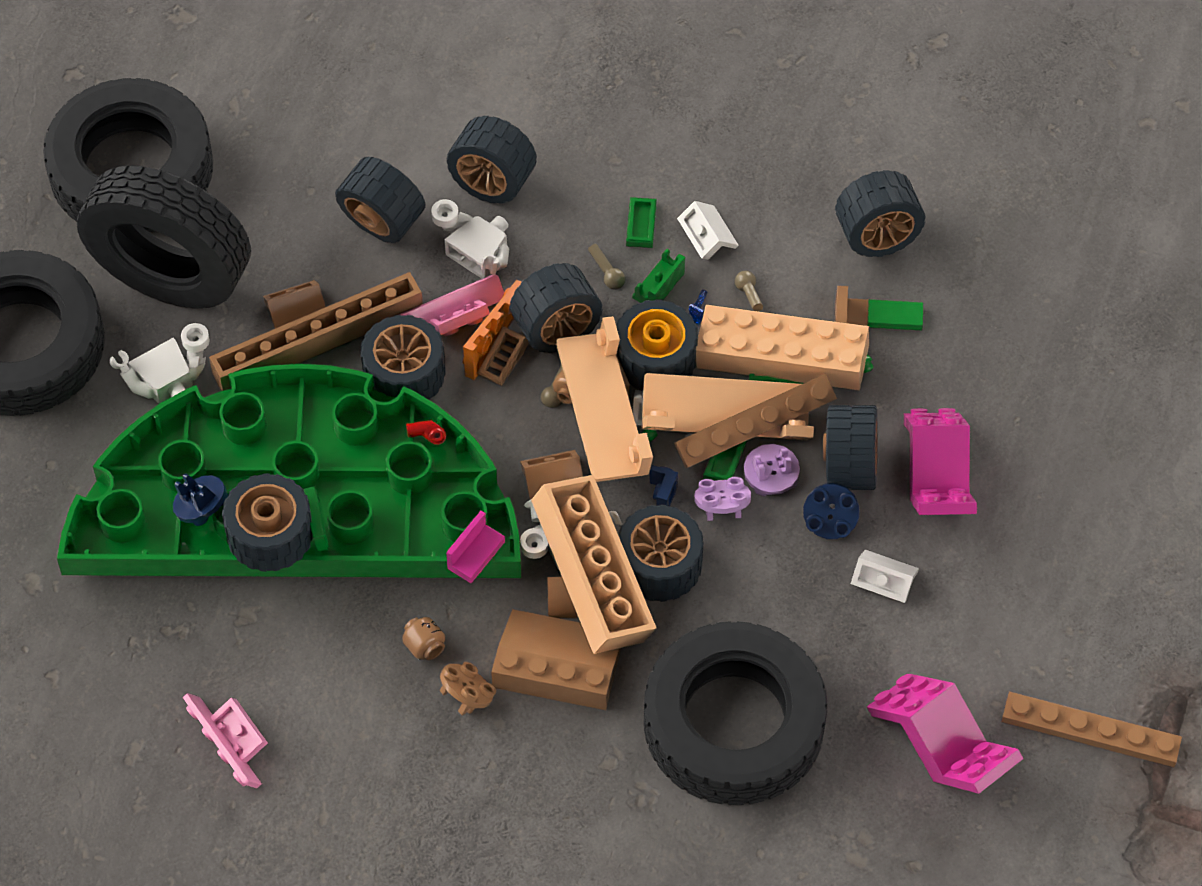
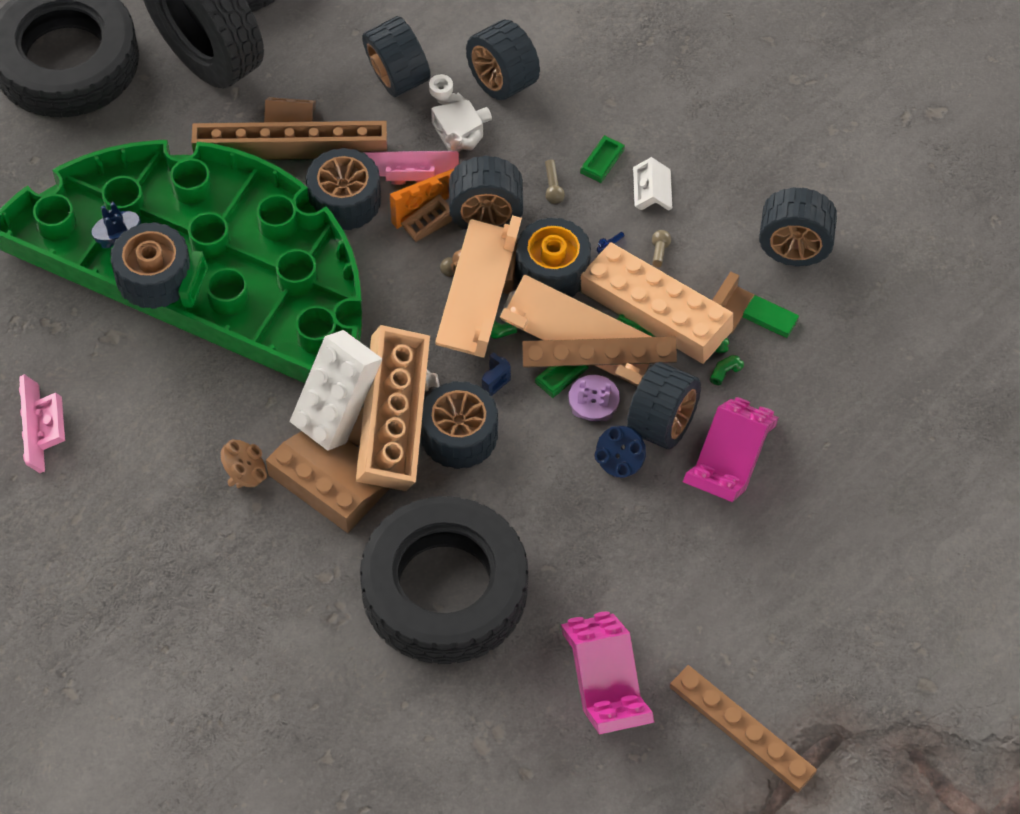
camera: 25 degrees right, 0 degrees up
(163, 369) = (161, 118): white torso -> none
(424, 638) = (233, 412): medium nougat head -> none
(428, 430) = (327, 248): red arm -> none
(474, 548) = (298, 353): dark pink panel -> none
(529, 570) = (335, 390): none -> white brick
(550, 469) = (416, 322): medium nougat panel -> none
(661, 279) = (591, 210): green hinge -> none
(722, 496) = (537, 401): lavender plate -> none
(881, 380) = (732, 362): none -> green arm
(884, 575) = (637, 523): white panel -> none

